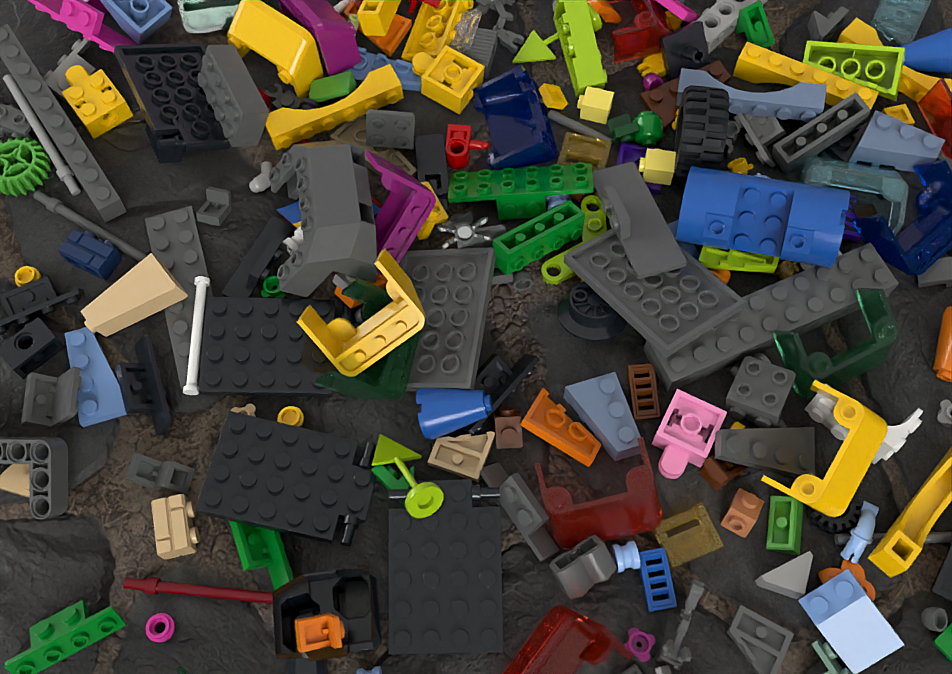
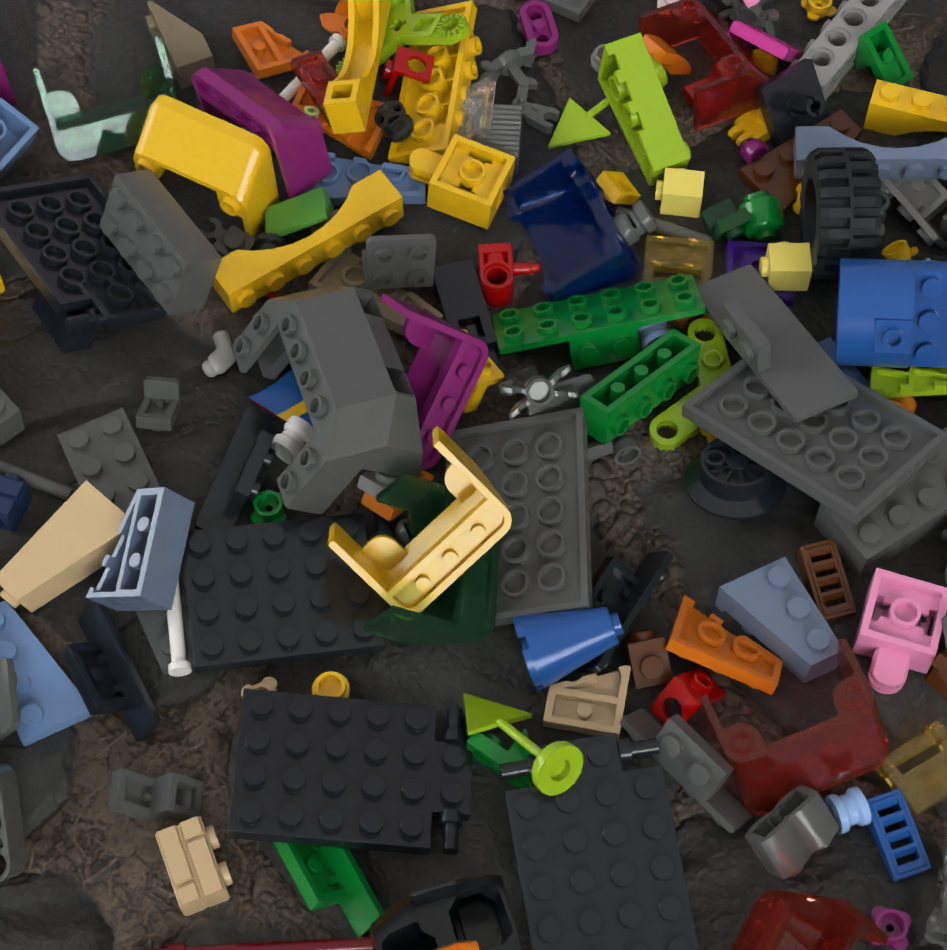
camera: 10 degrees left, 5 degrees down
(181, 309) = (148, 554): none -> sand blue wedge
(408, 31) = (394, 121): none -> black wheel
(529, 455) = (687, 689): none -> red bracket
(560, 122) = (642, 218): none -> dark grey wheel

